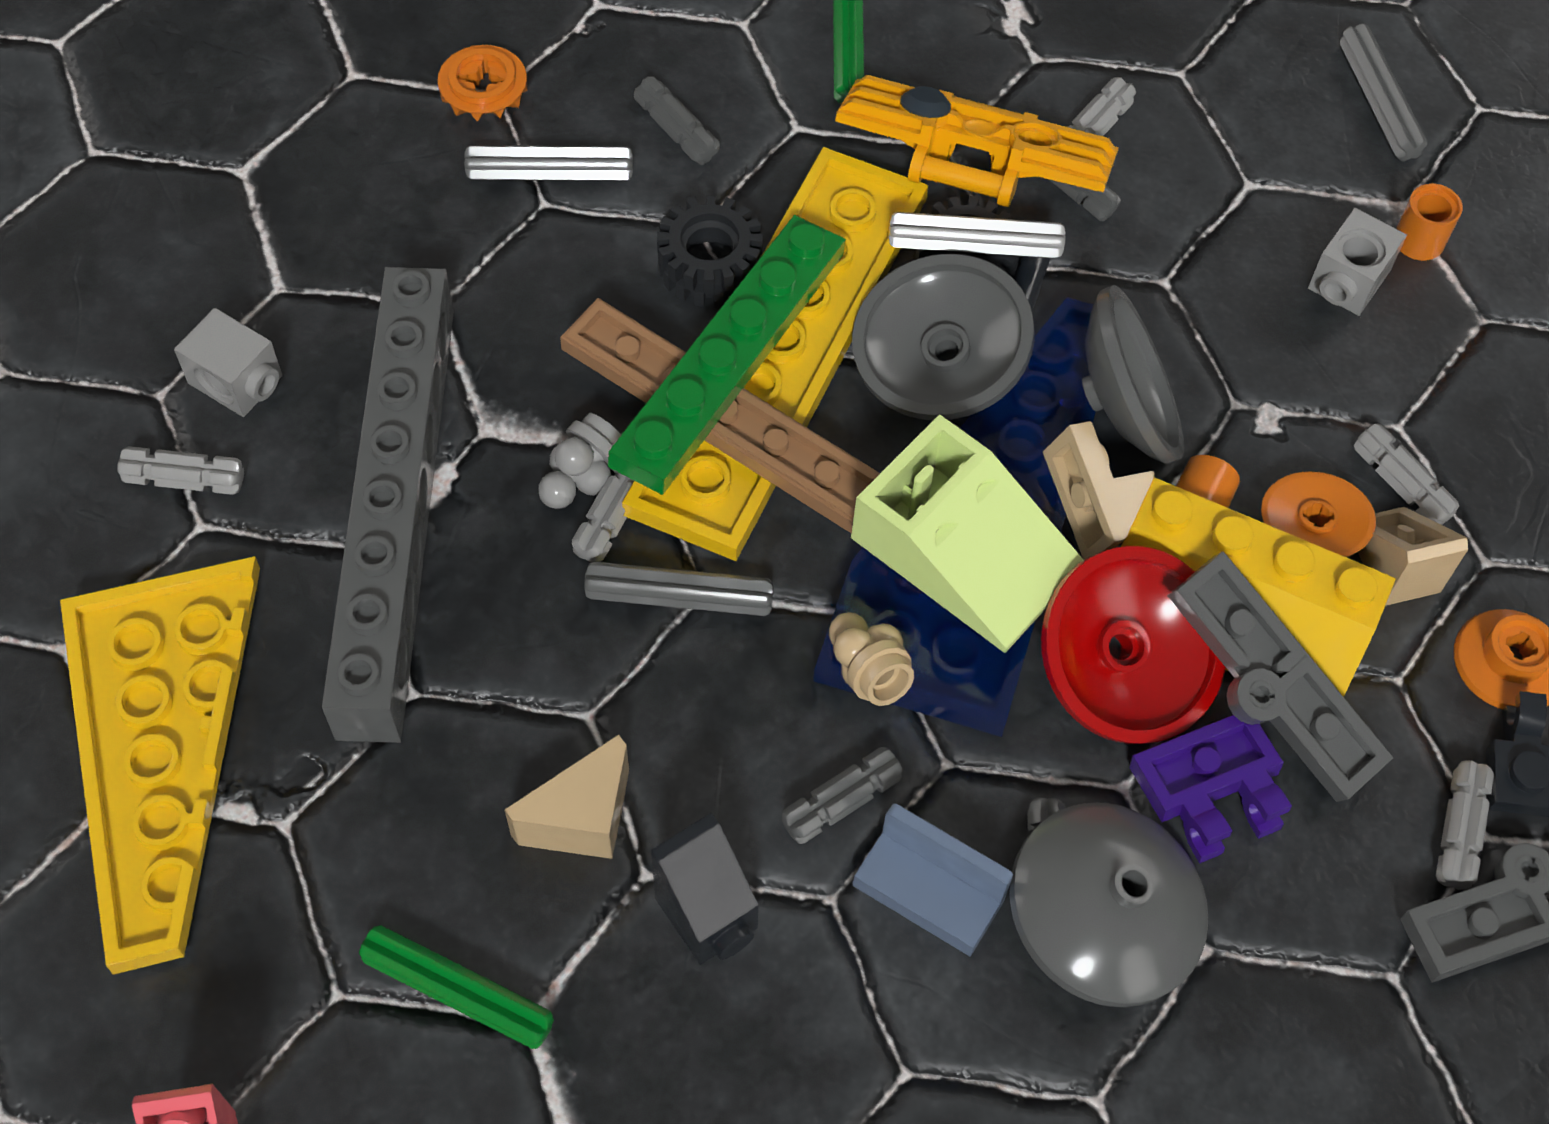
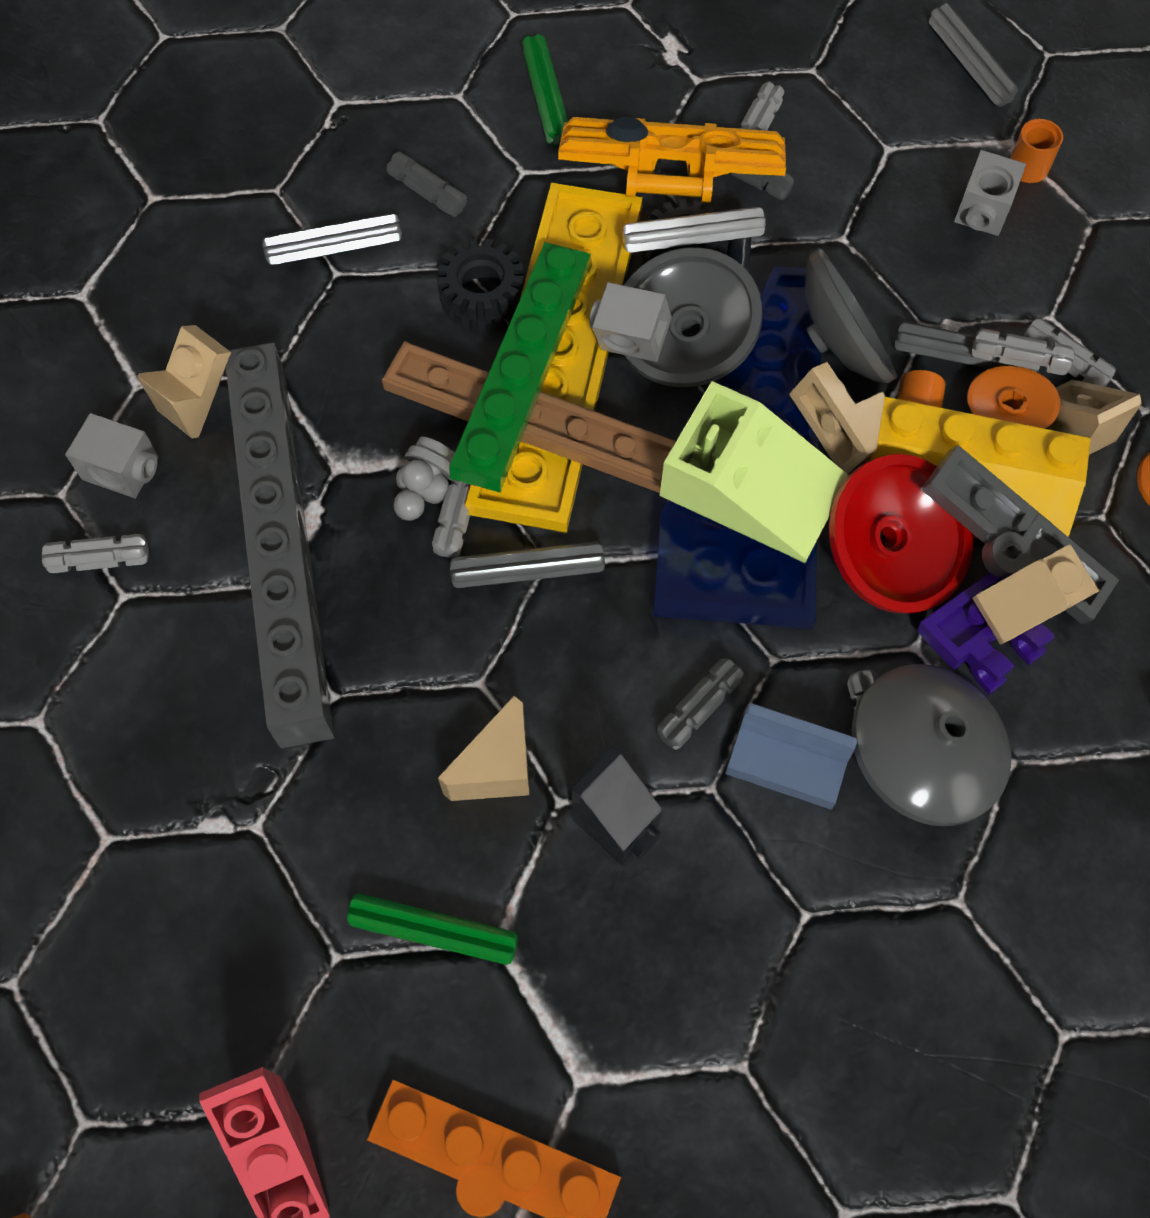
camera: 10 degrees left, 5 degrees up
(152, 720) = (126, 765): yellow wing -> none
(338, 294) = (190, 380): none -> tan slope
(467, 69) = (244, 178): orange gear -> none
(871, 328) = (631, 321): none -> light grey brick
(871, 658) = (700, 590): tan piece -> none
(1278, 749) = (1035, 594): none -> tan slope
(1279, 441) = (940, 344): none -> dark grey axle
(1344, 459) = (1022, 351): none -> light grey axle

